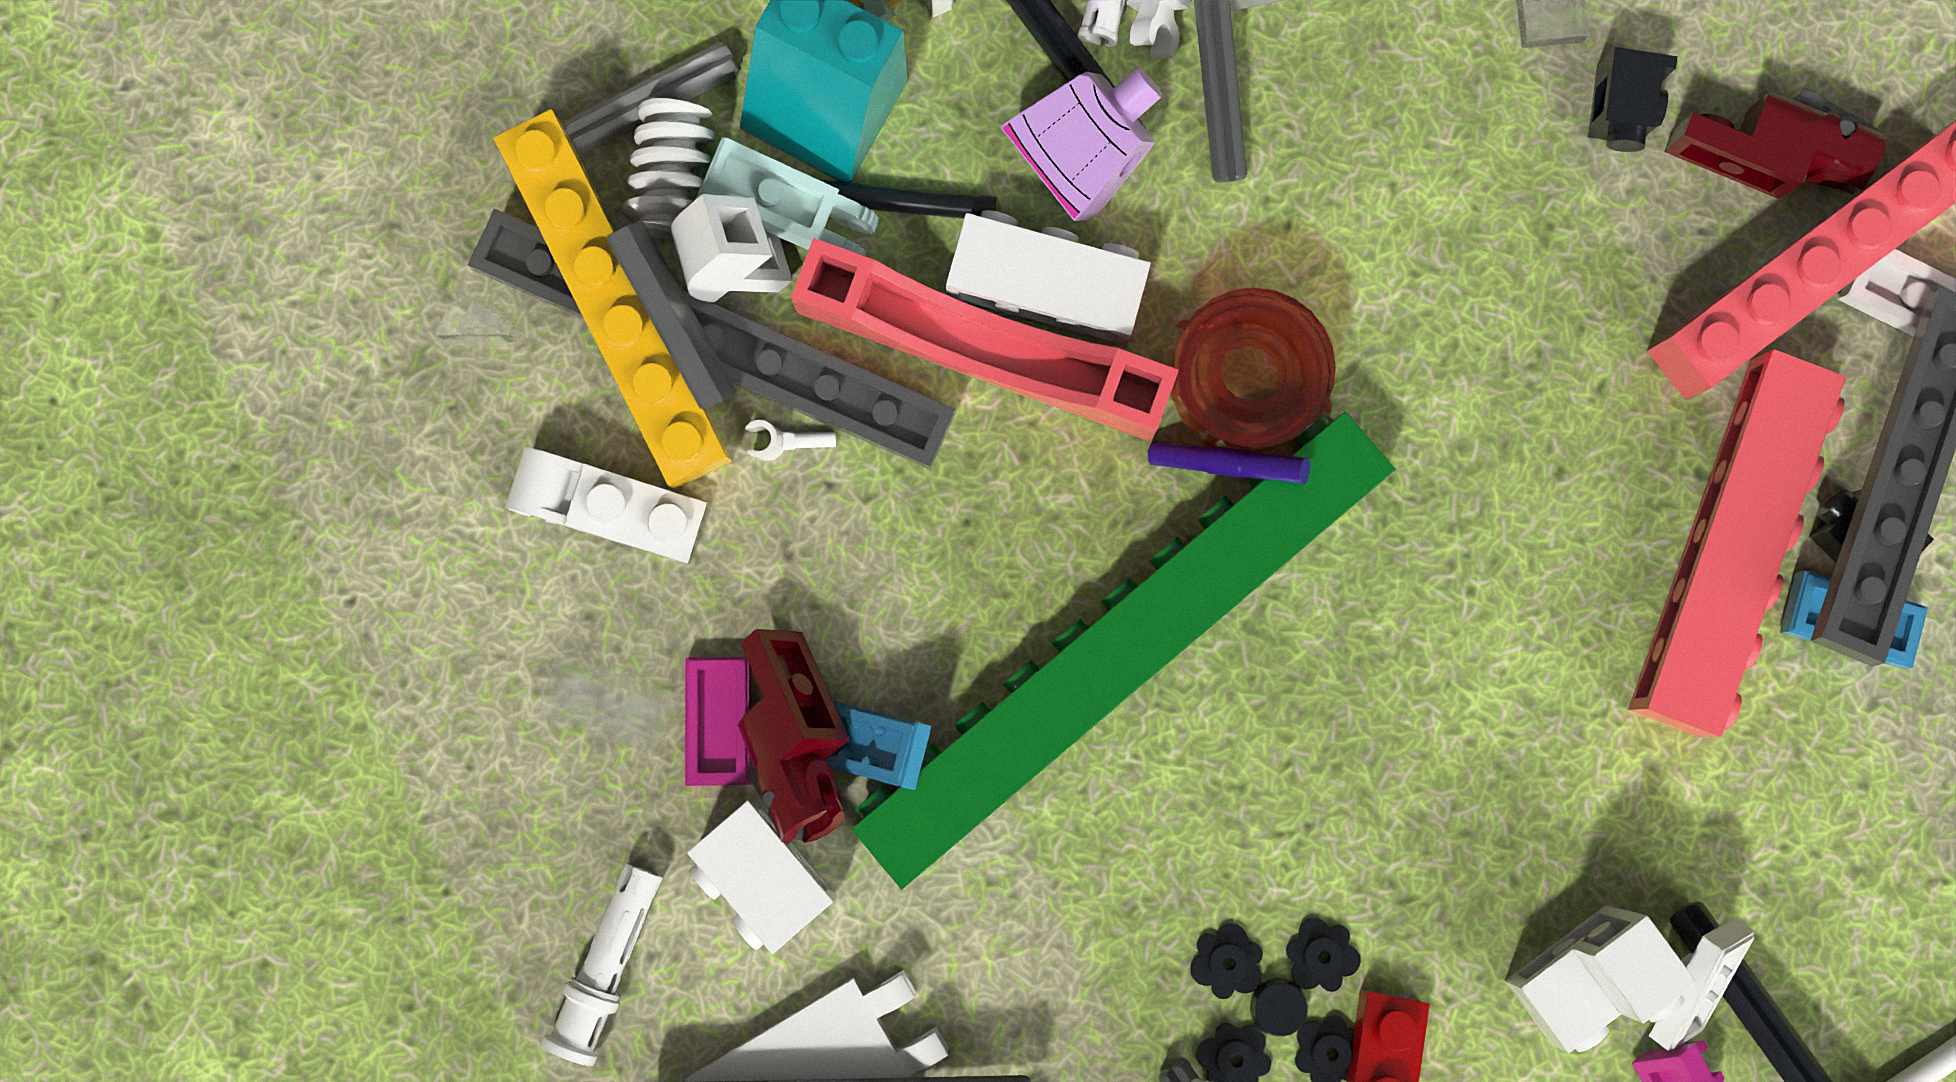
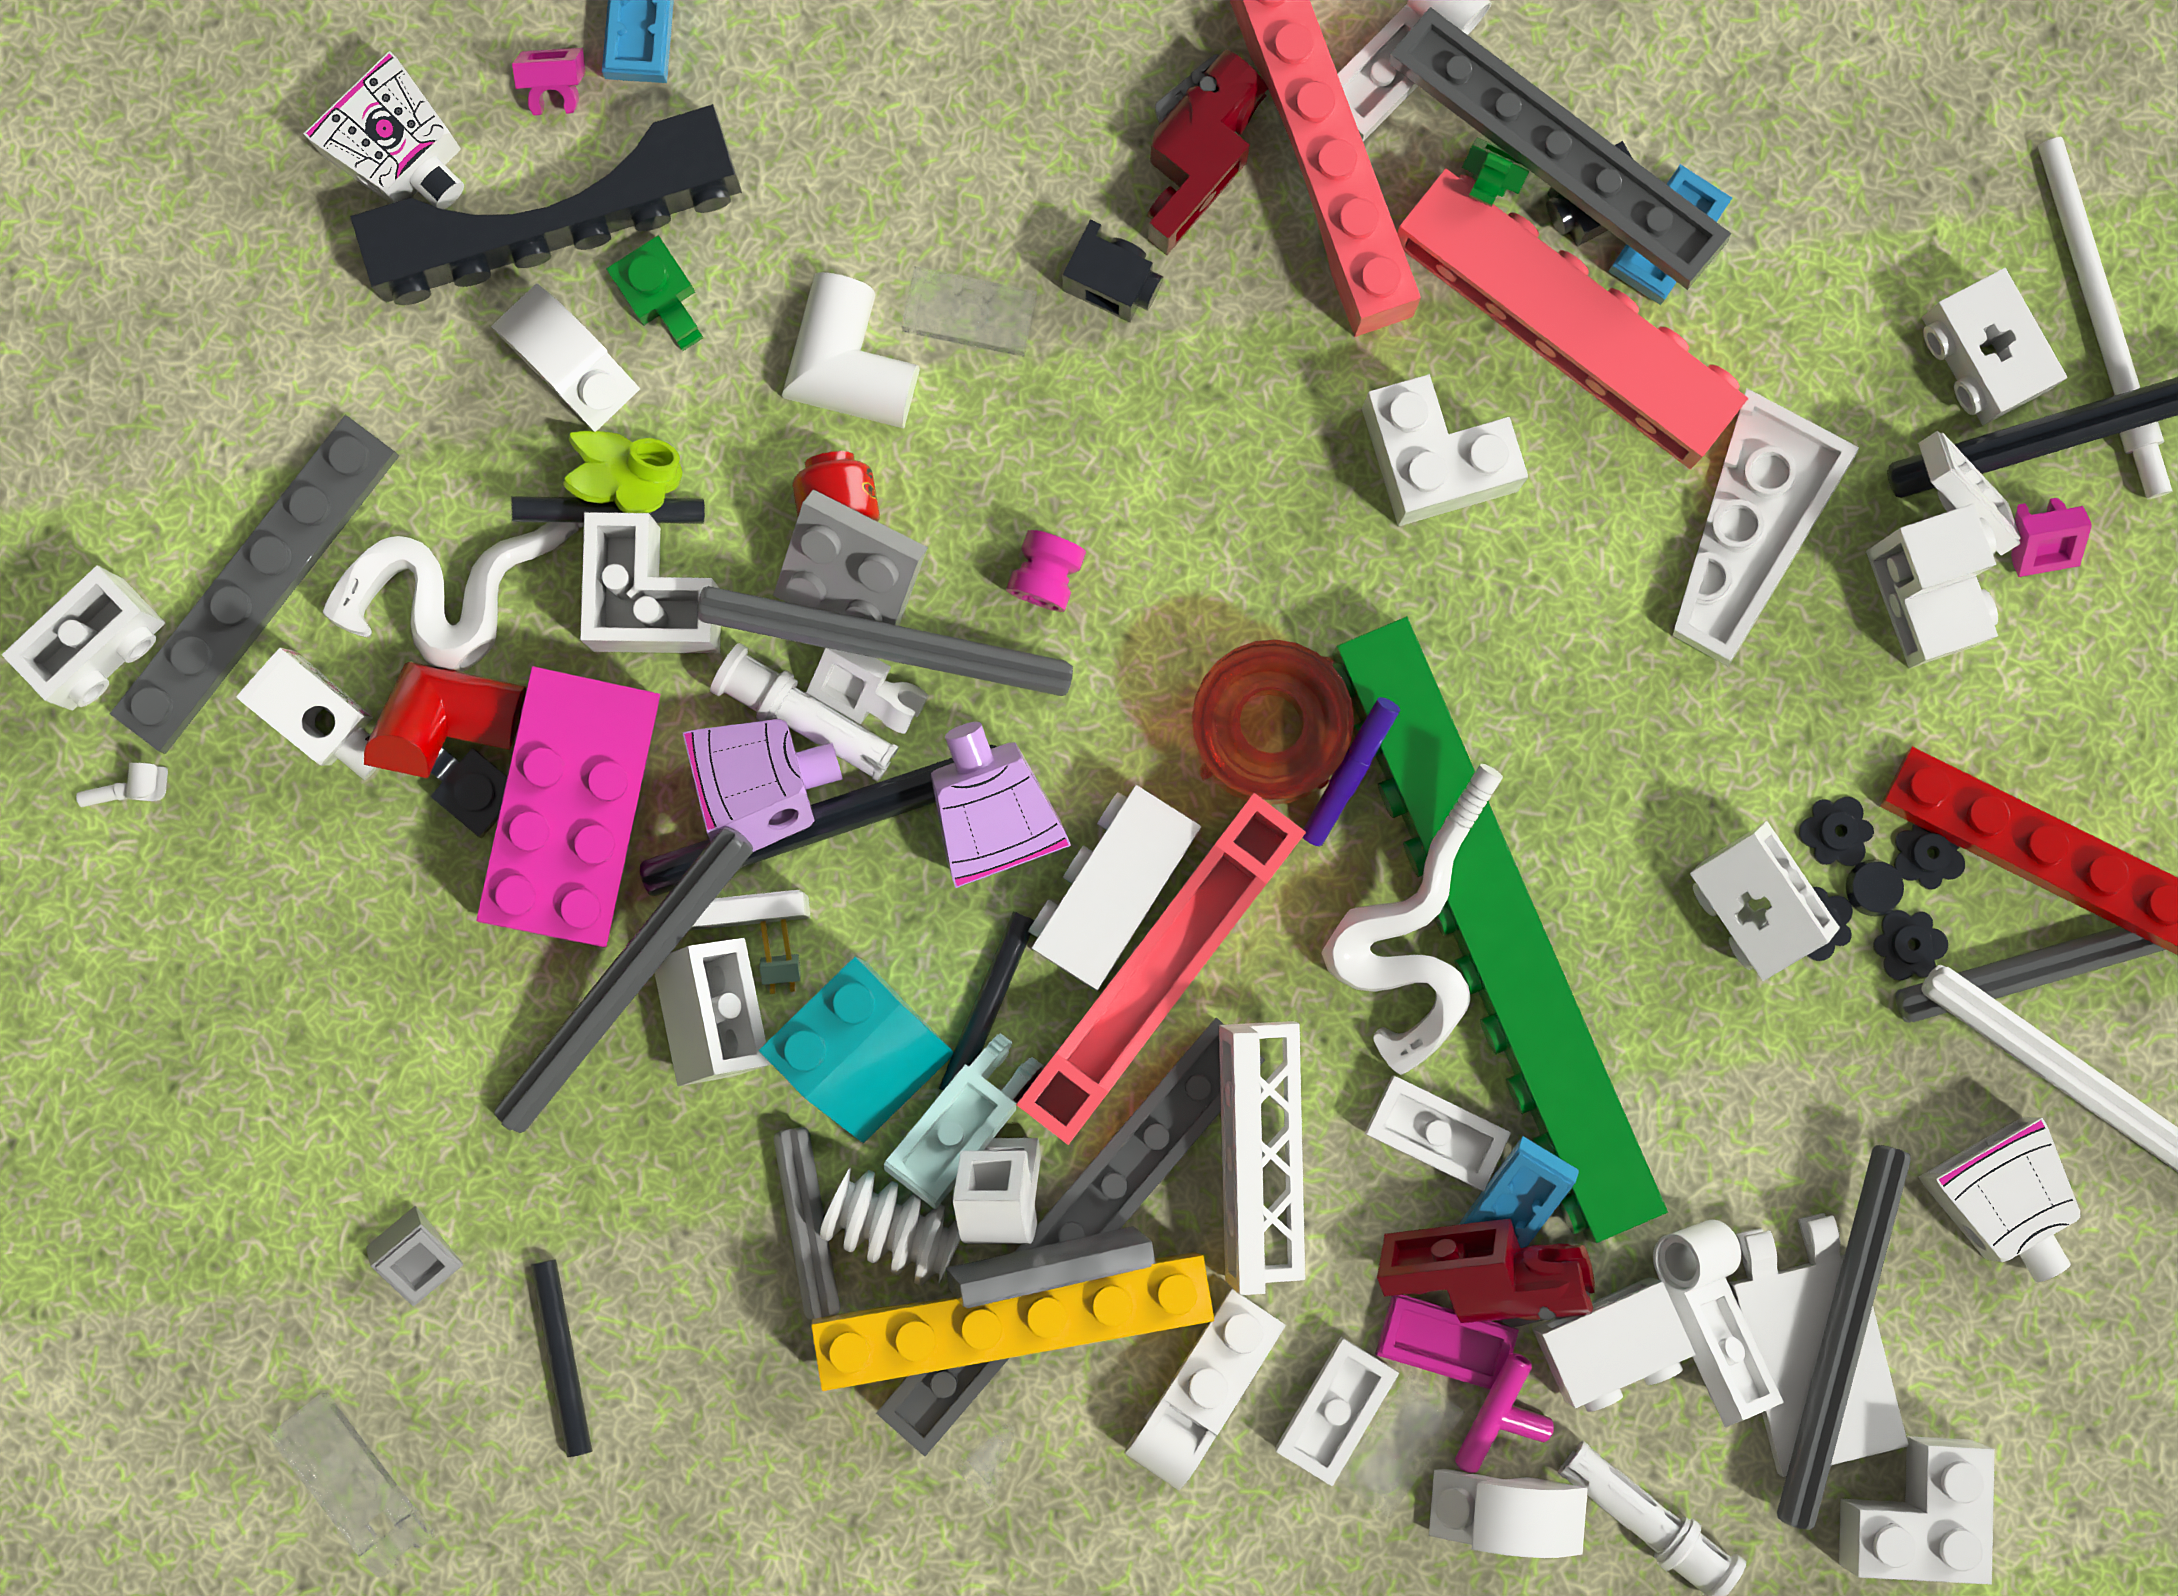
camera: 70 degrees left, 0 degrees up
(569, 827) = (1508, 1514): none -> white brick
(621, 634) = (1336, 1411): none -> white plate
(663, 789) = (1500, 1414): none -> dark pink piece
(788, 440) = (1193, 1188): white hand -> none
(788, 984) = (1694, 1274): none -> white plate
(832, 467) = (1246, 1155): none -> white fence
(911, 651) = (1437, 1133): none -> white plate
(1068, 512) = (1352, 962): none -> white animal
(1264, 888) = (1758, 868): none -> white brick
(1320, 125) = (1044, 576): none -> dark pink wheel
(1547, 460) = (1435, 470): none -> white brick
(1626, 792) = (1757, 521): none -> white wing
(1856, 427) = (1493, 172): none -> green plate
(1885, 962) = (1994, 315): none -> white brick

